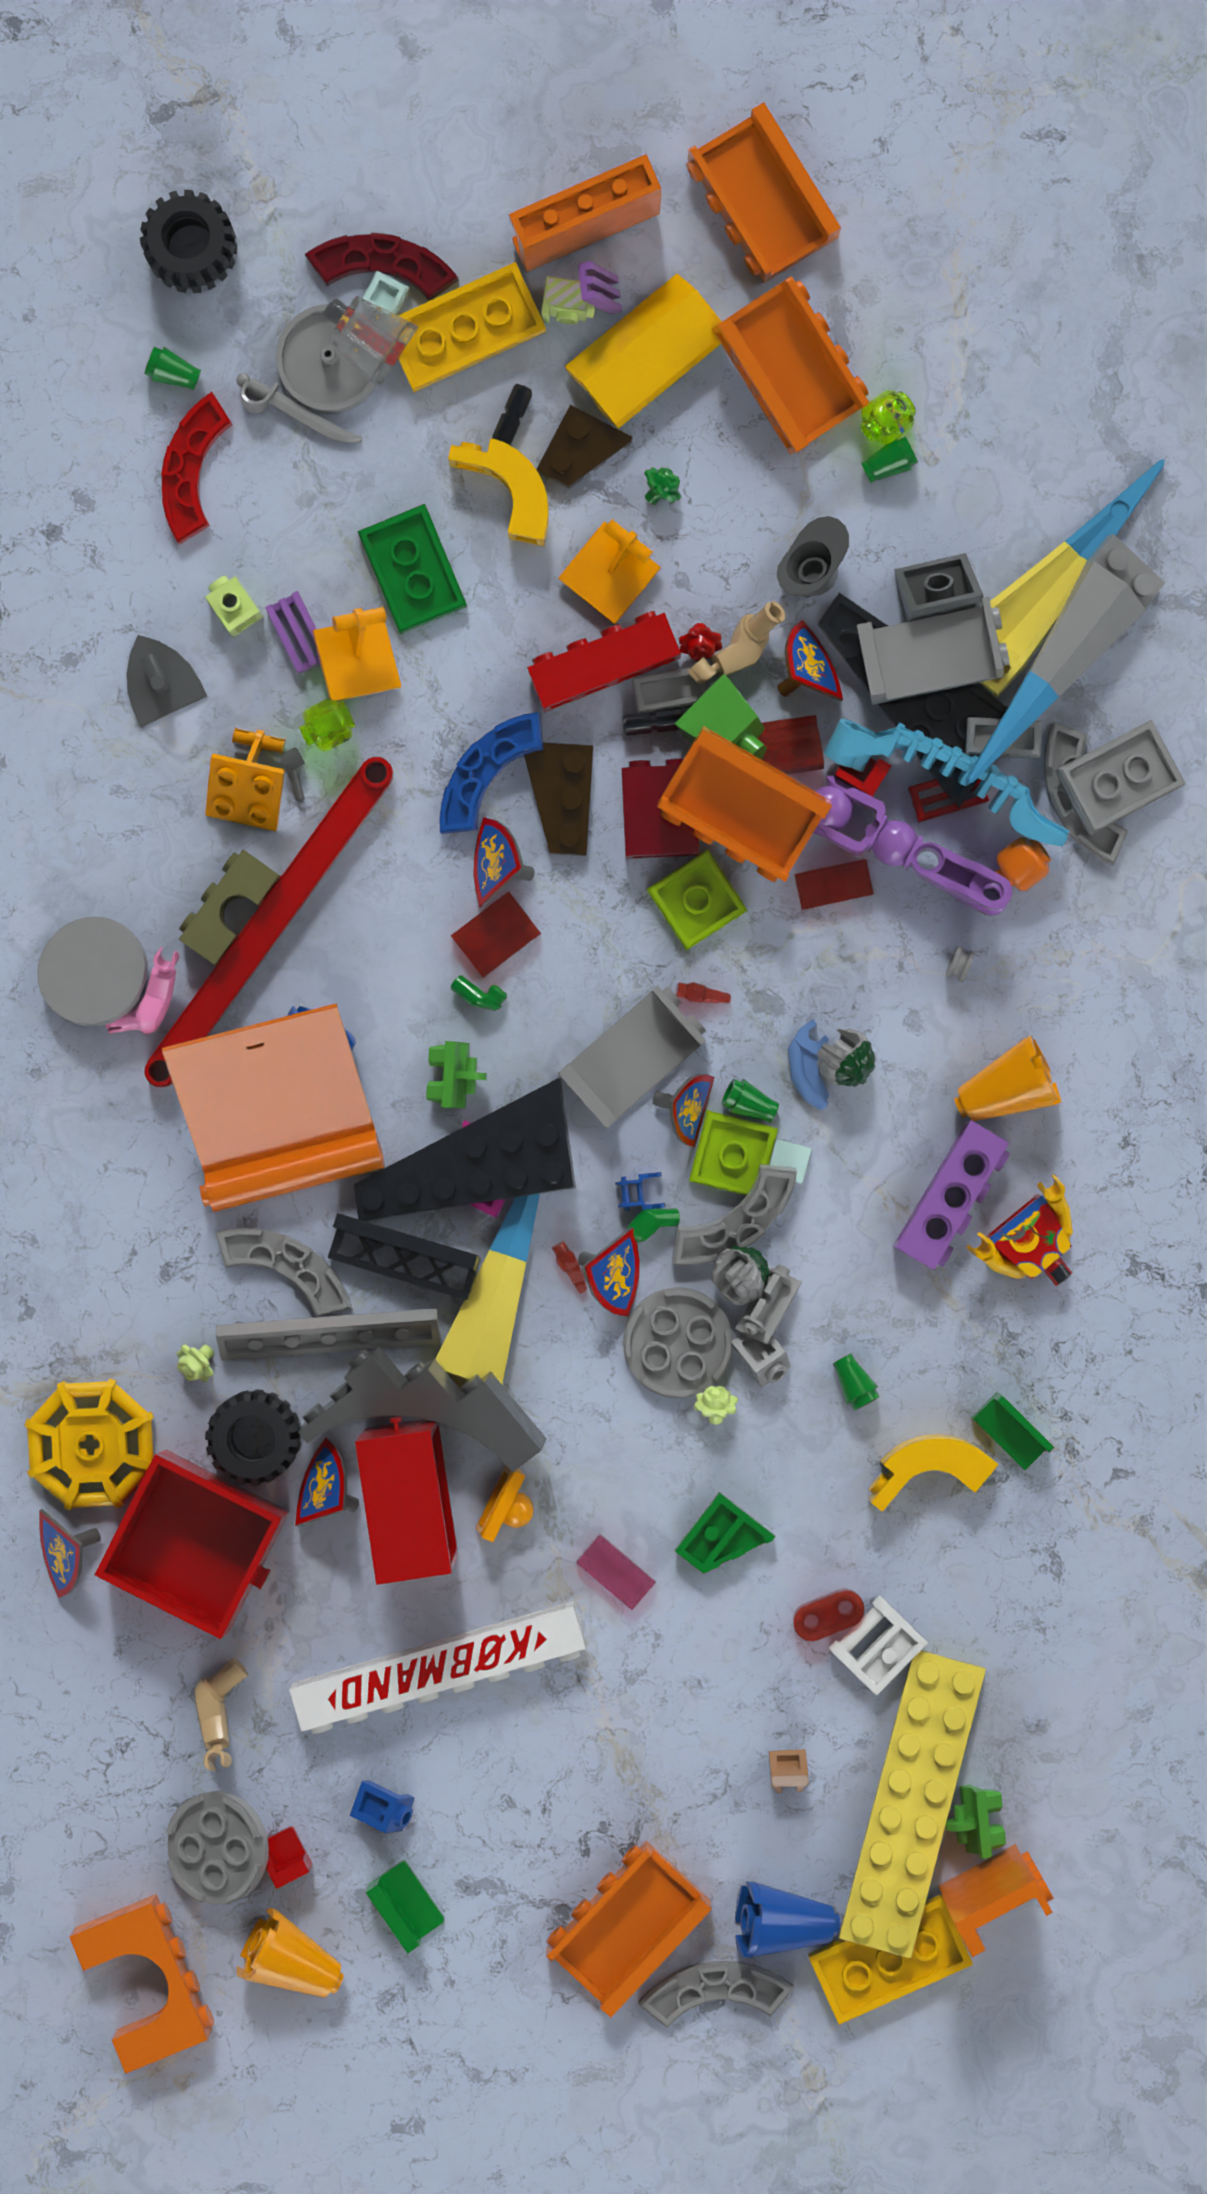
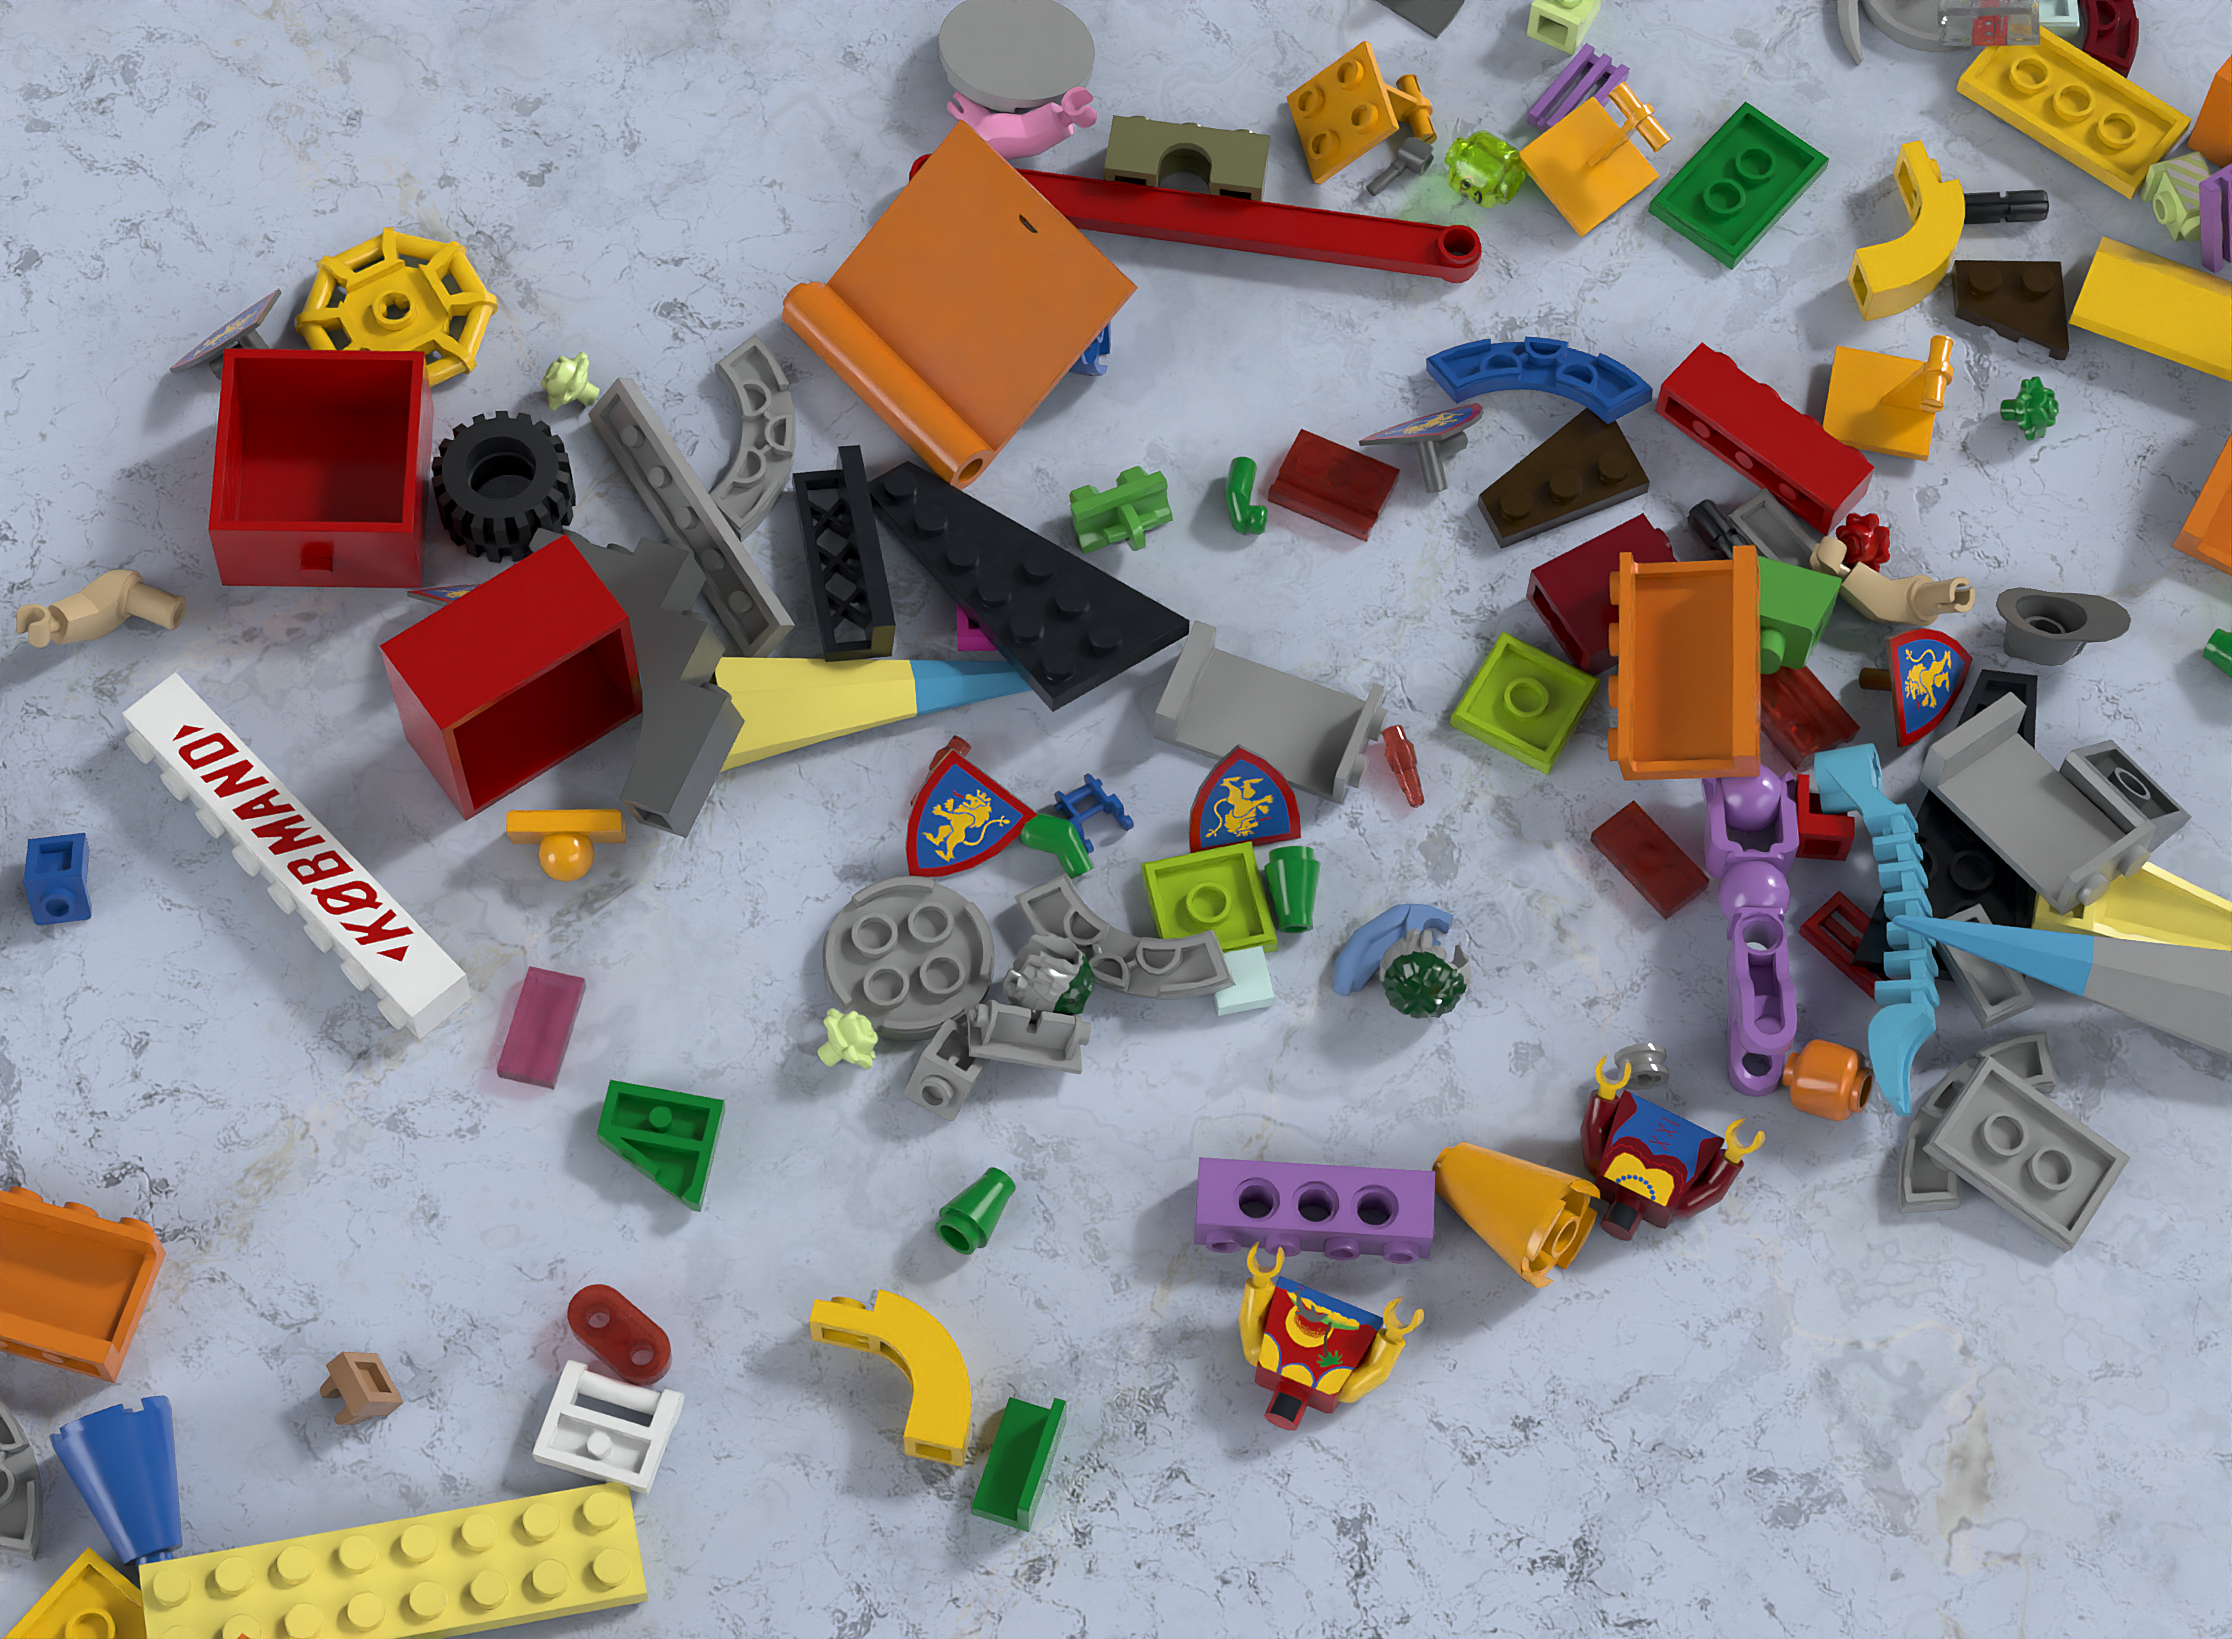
camera: 60 degrees right, 25 degrees down
(1021, 990) = (1653, 1160): none -> torso

